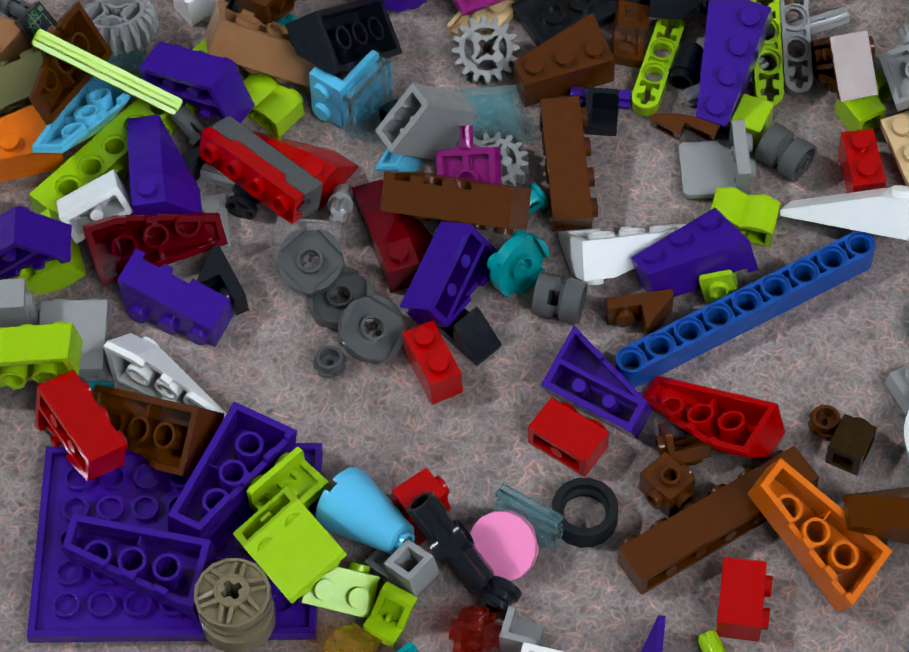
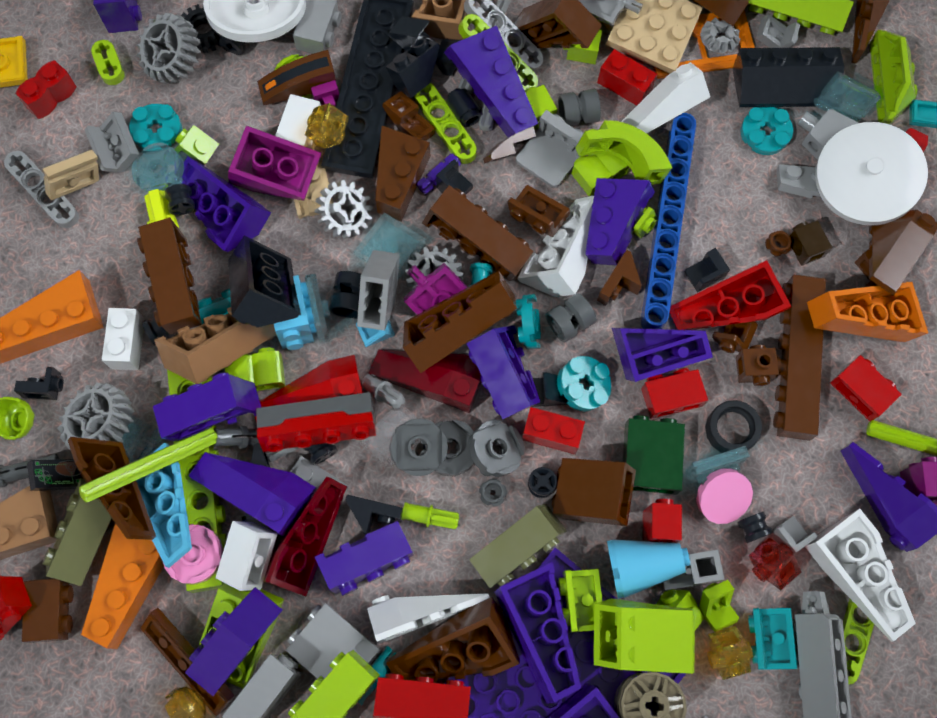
camera: 55 degrees left, 15 degrees up
(61, 173) = (201, 561): none -> bright pink tile
(261, 327) = (430, 516): none -> lime axle
(312, 407) = (518, 546): none -> olive wedge
(370, 386) = (545, 478): none -> black wheel
(402, 430) = (594, 491): none -> reddish brown brick
(450, 541) = (711, 529): black piece -> none
(485, 458) = (655, 453): none -> dark green brick
(499, 373) = (597, 376): none -> teal plate
(642, 197) = (539, 211): none -> reddish brown bracket
(727, 378) = (708, 271): none -> black panel
(779, 207) = (629, 144): none -> lime arch

